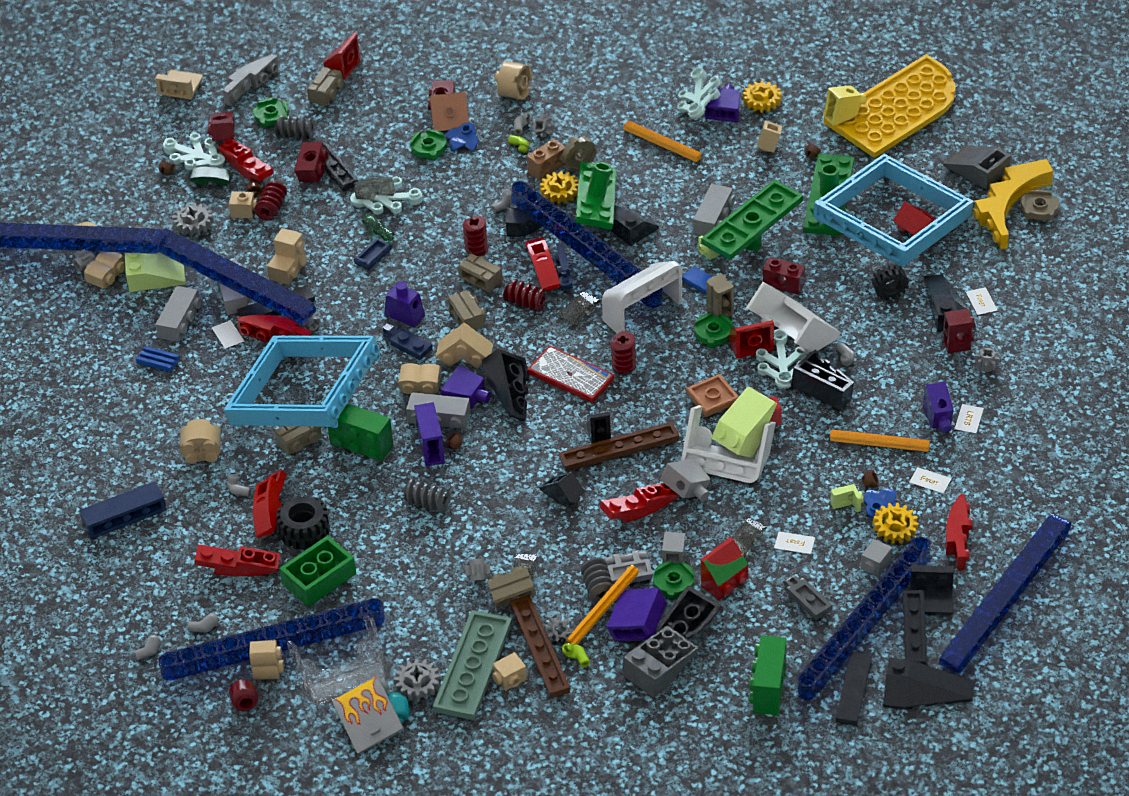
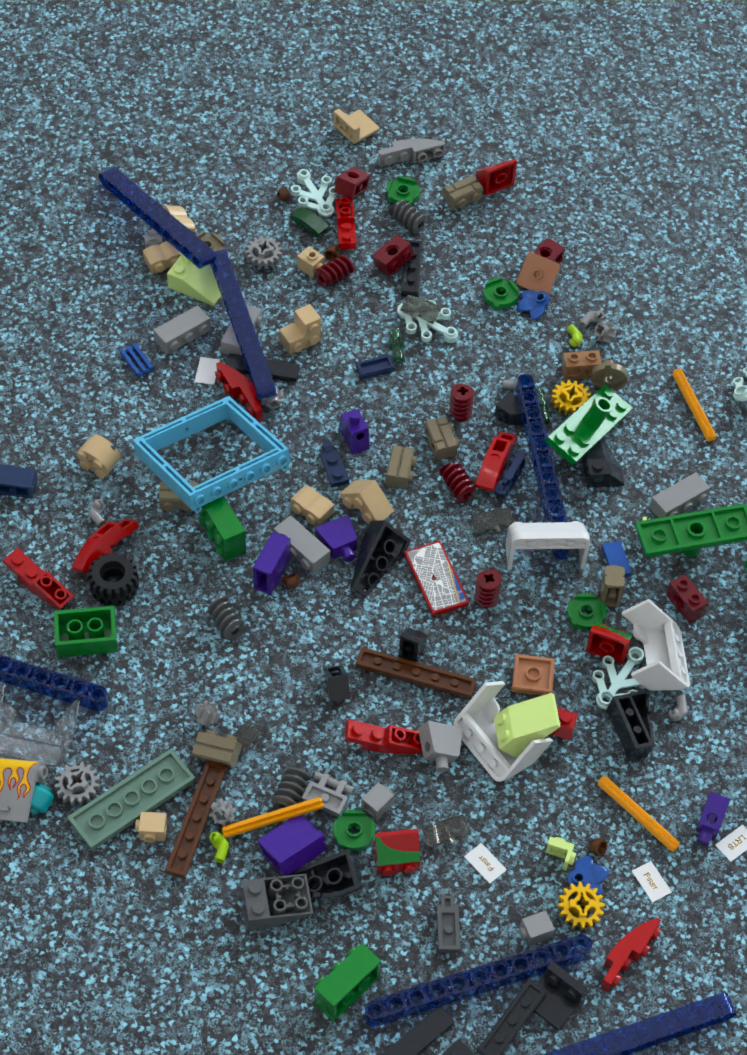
camera: 30 degrees right, 10 degrees up
(513, 80) = (614, 275): tan brick -> none

